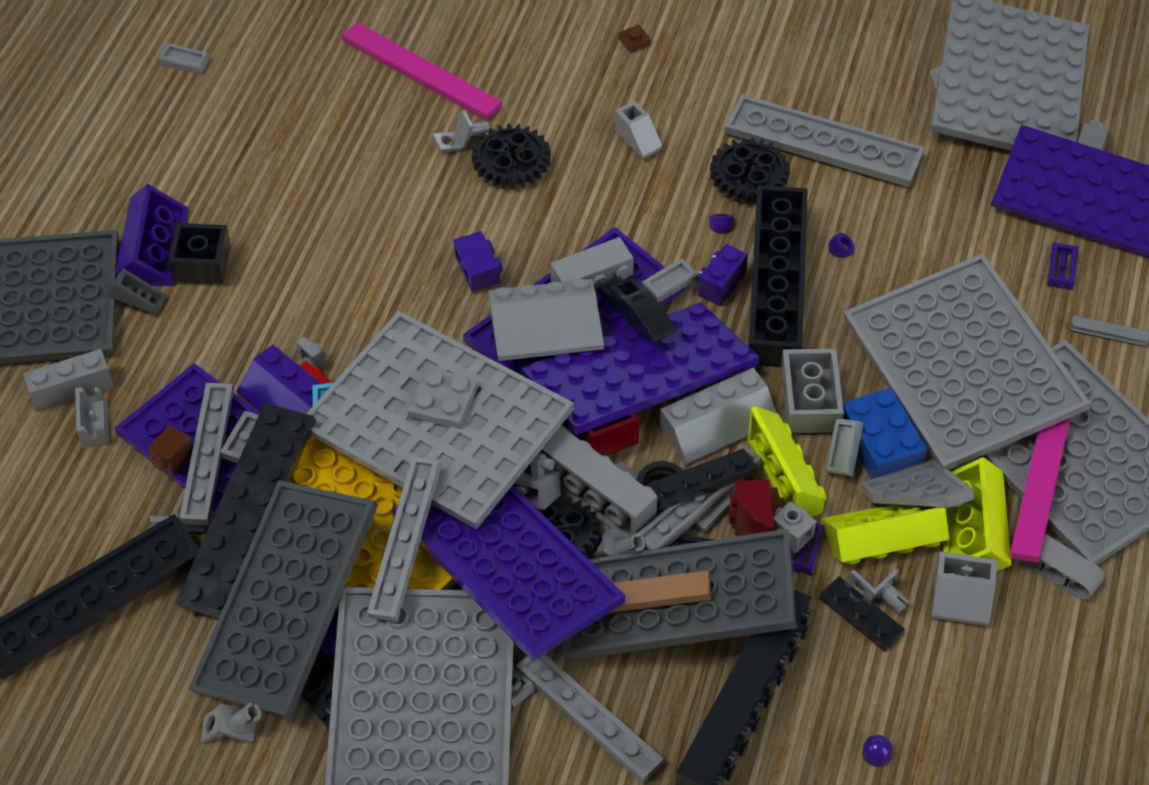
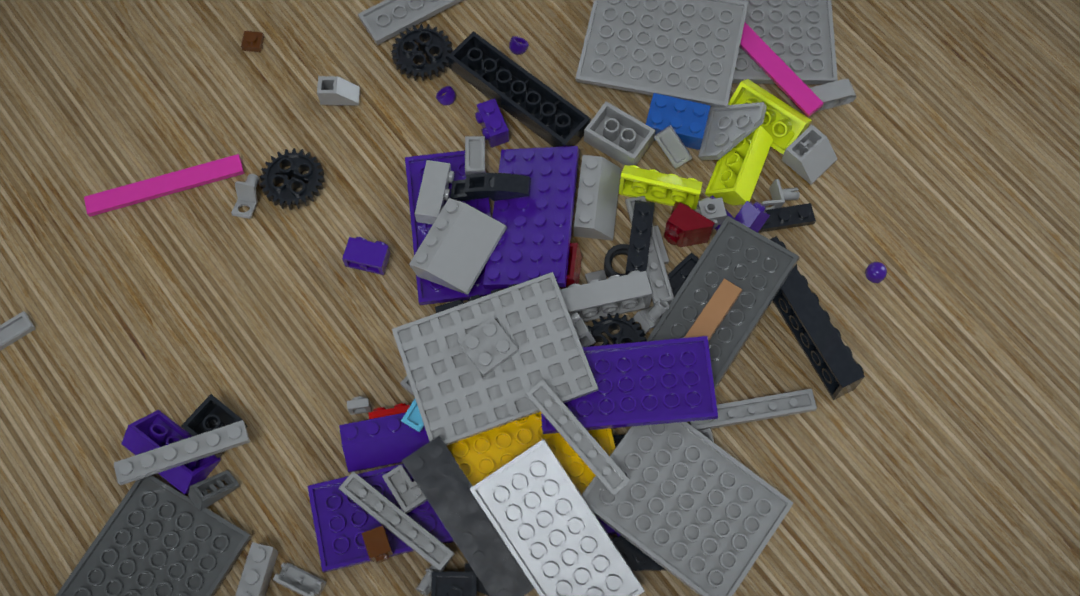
camera: 55 degrees left, 15 degrees up
(149, 237) = (181, 452): none -> light grey plate
(825, 573) = (752, 215): none -> dark purple brick

